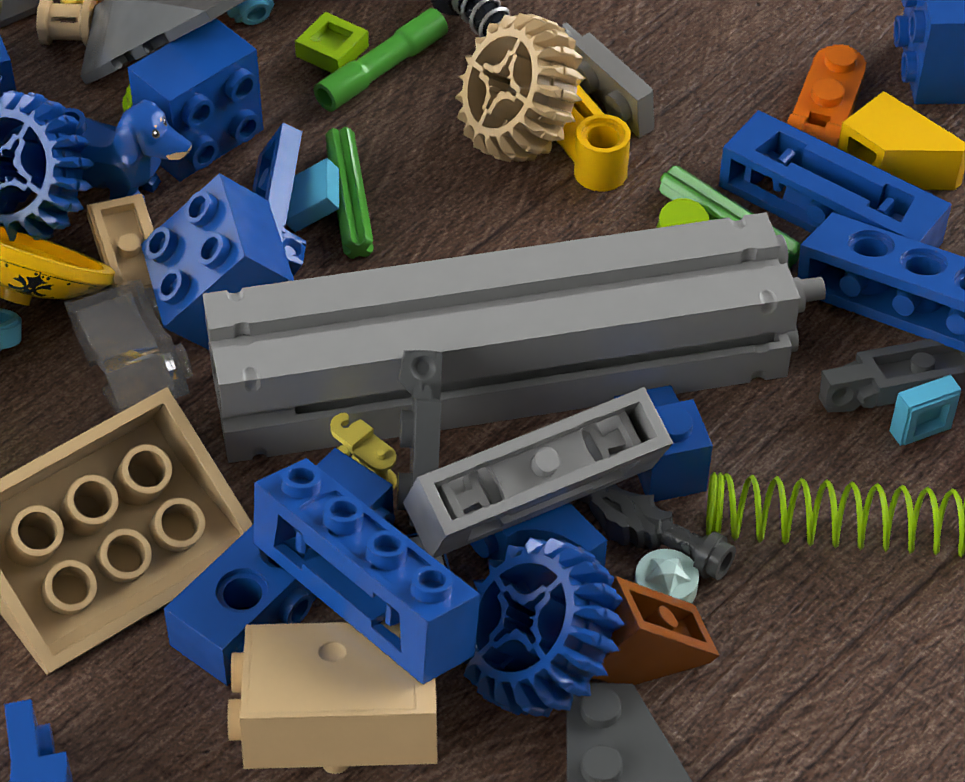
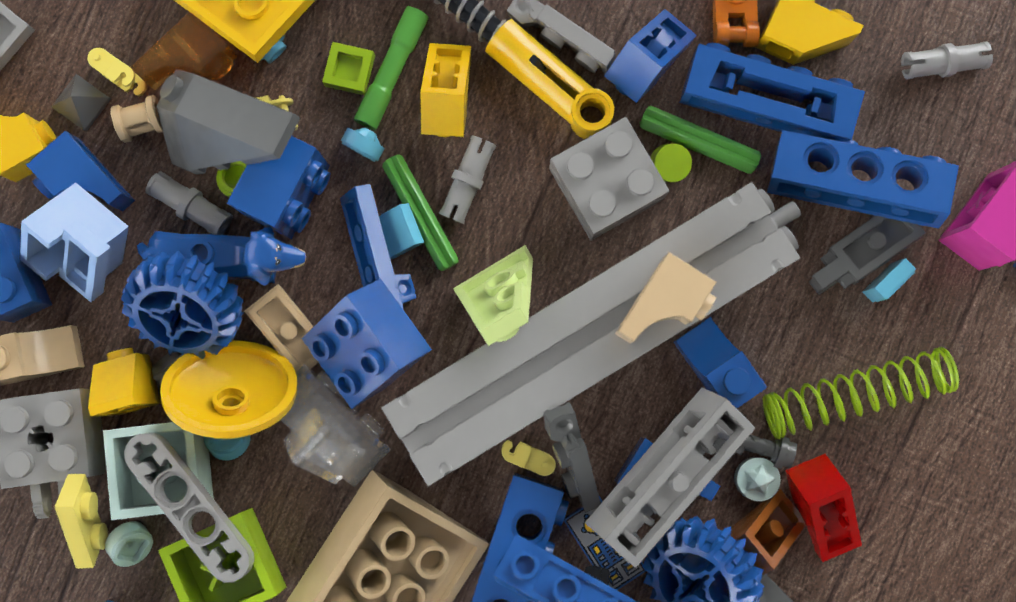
camera: 15 degrees left, 35 degrees up
(62, 88) = (189, 203): none -> light grey pin
(110, 306) = (322, 446): none -> clear slope
(312, 107) = (363, 142): none -> medium azure tile
(399, 243) = (499, 296): none -> yellowish green wing
(421, 174) = (467, 179): none -> light grey pin
(427, 88) = (445, 90): none -> yellow arch
(519, 87) = (518, 89): tan gear -> none
(591, 193) = (608, 178): none -> light grey brick
(608, 268) = (671, 293): none -> tan arch
(689, 116) = (649, 55): none -> blue arch
(748, 630) = (825, 506): none -> red arch

